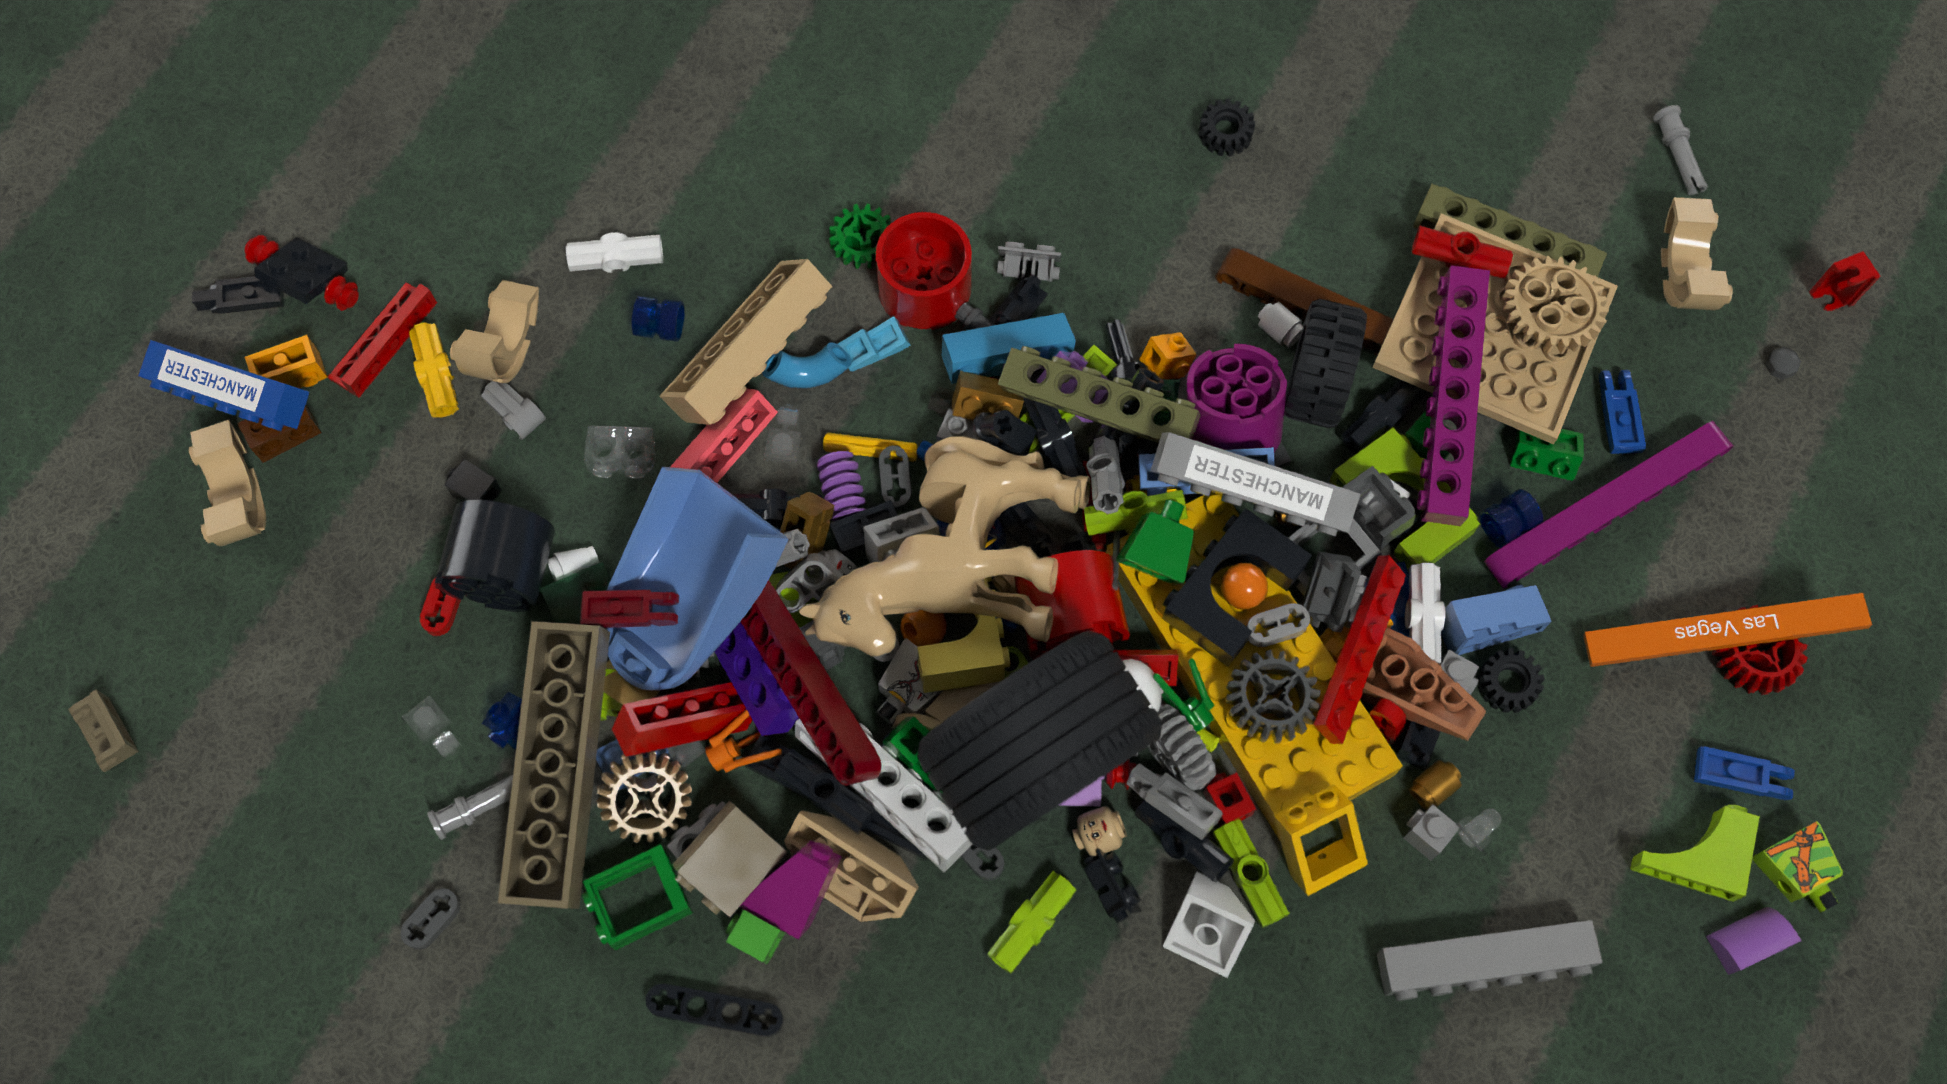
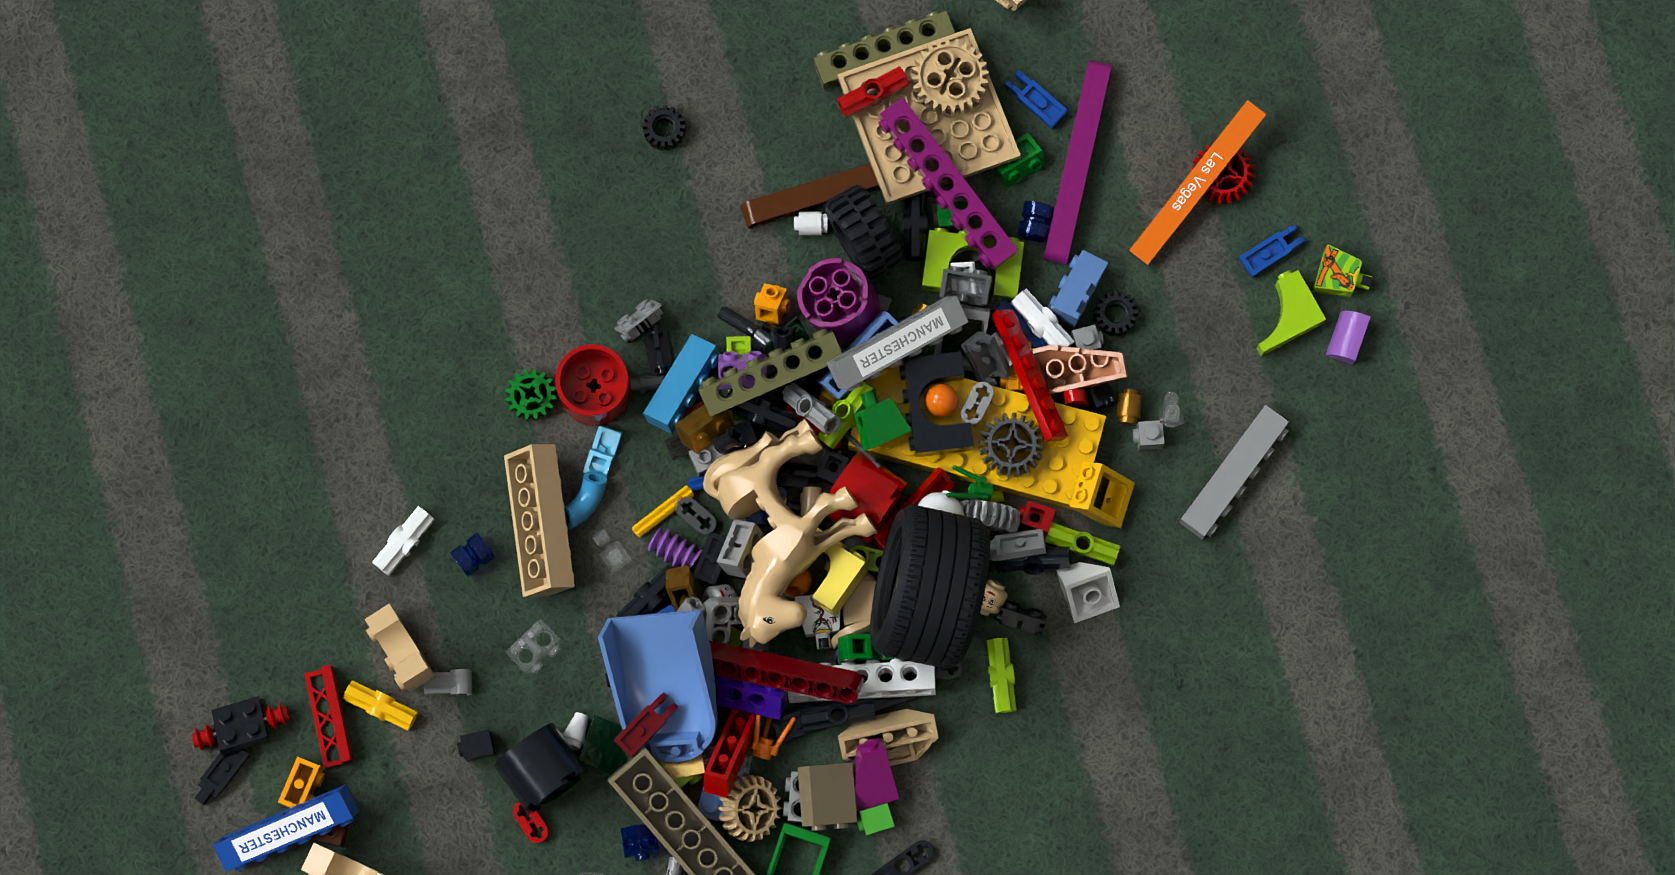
camera: 45 degrees left, 10 degrees up
(725, 441) = (587, 598): coral brick -> none

